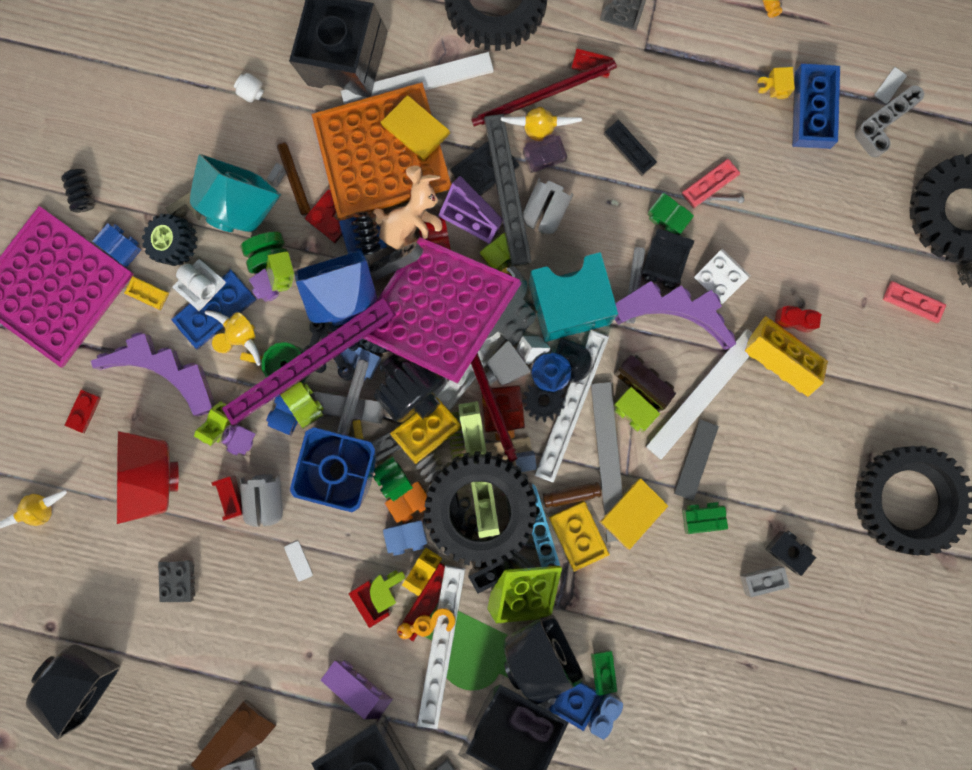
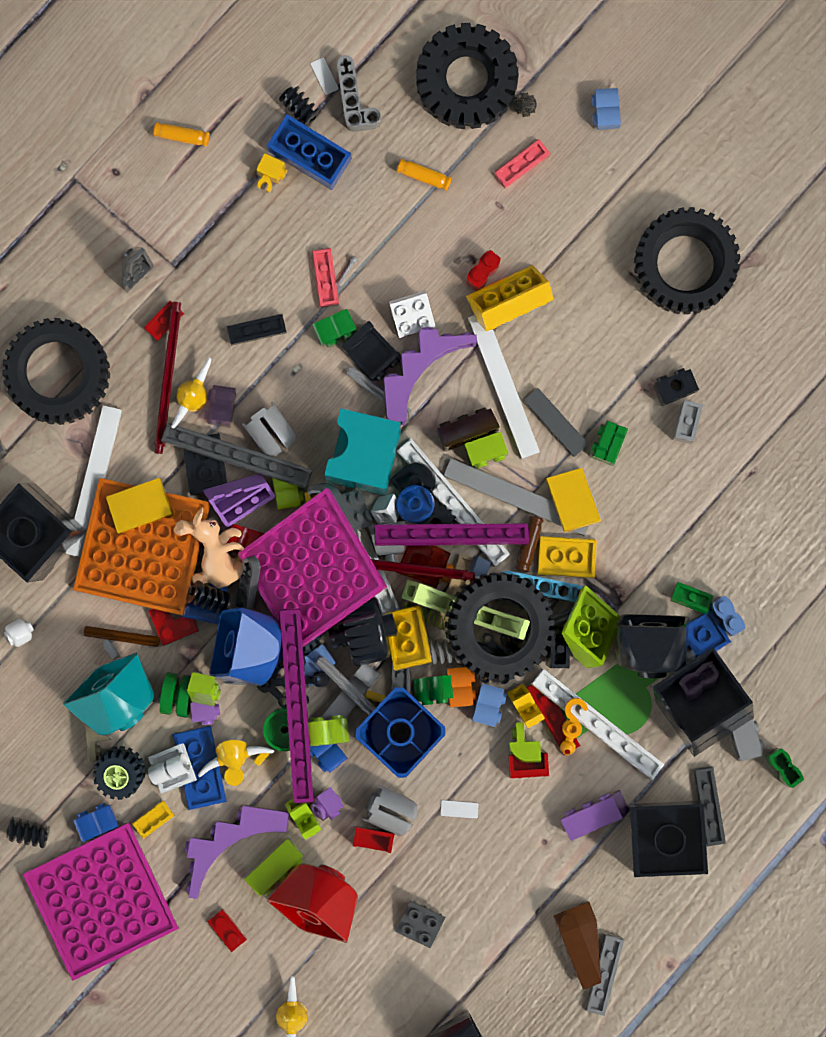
camera: 65 degrees left, 0 degrees up
(158, 423) = (274, 868): none -> lime brick
(541, 419) = (451, 534): none -> magenta plate
(852, 75) = (299, 105): none -> black piece
(854, 219) = (424, 174): none -> light orange axle

